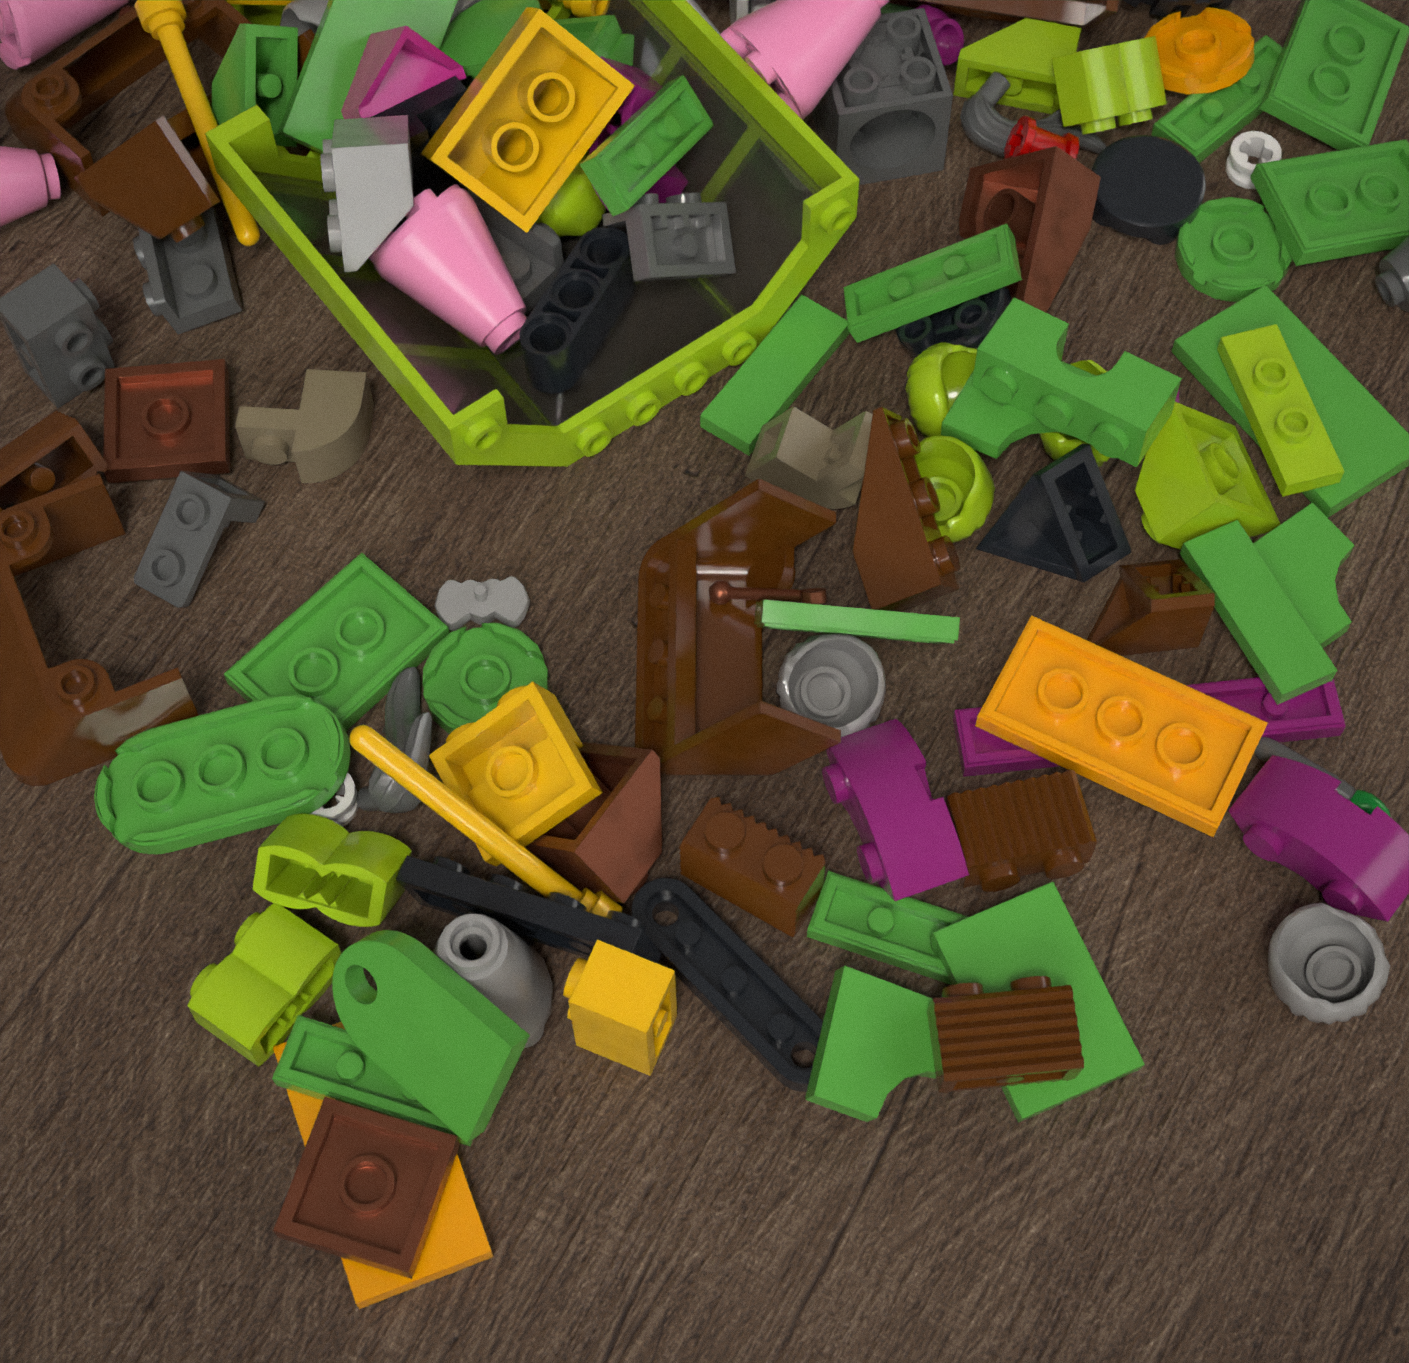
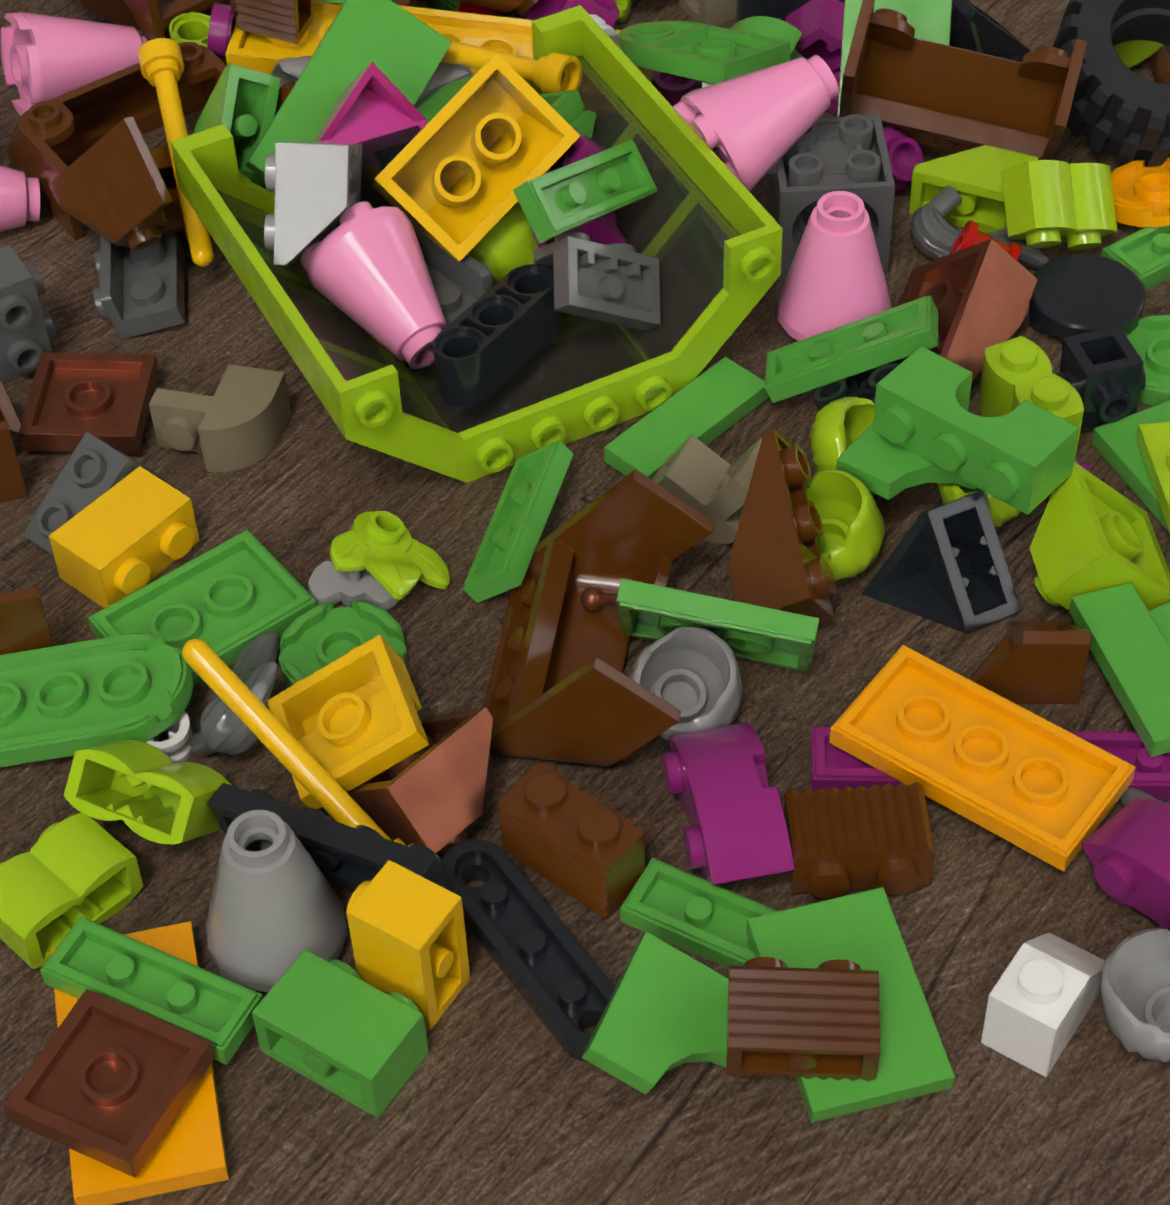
camera: 10 degrees right, 15 degrees down
(242, 580) = (124, 538): none -> yellow brick
(427, 1028) = (201, 926): bright green tile -> none
(511, 567) = (389, 553): none -> lime plate
(576, 1098) = (342, 1032): none -> bright green brick
(632, 513) = (518, 522): none -> bright green tile
(902, 199) = (834, 270): none -> bright pink cone
(1108, 315) = (1022, 372): none -> lime brick
(1175, 286) = (1104, 373): none -> black brick
(1215, 973) = (1041, 1001): none -> white slope

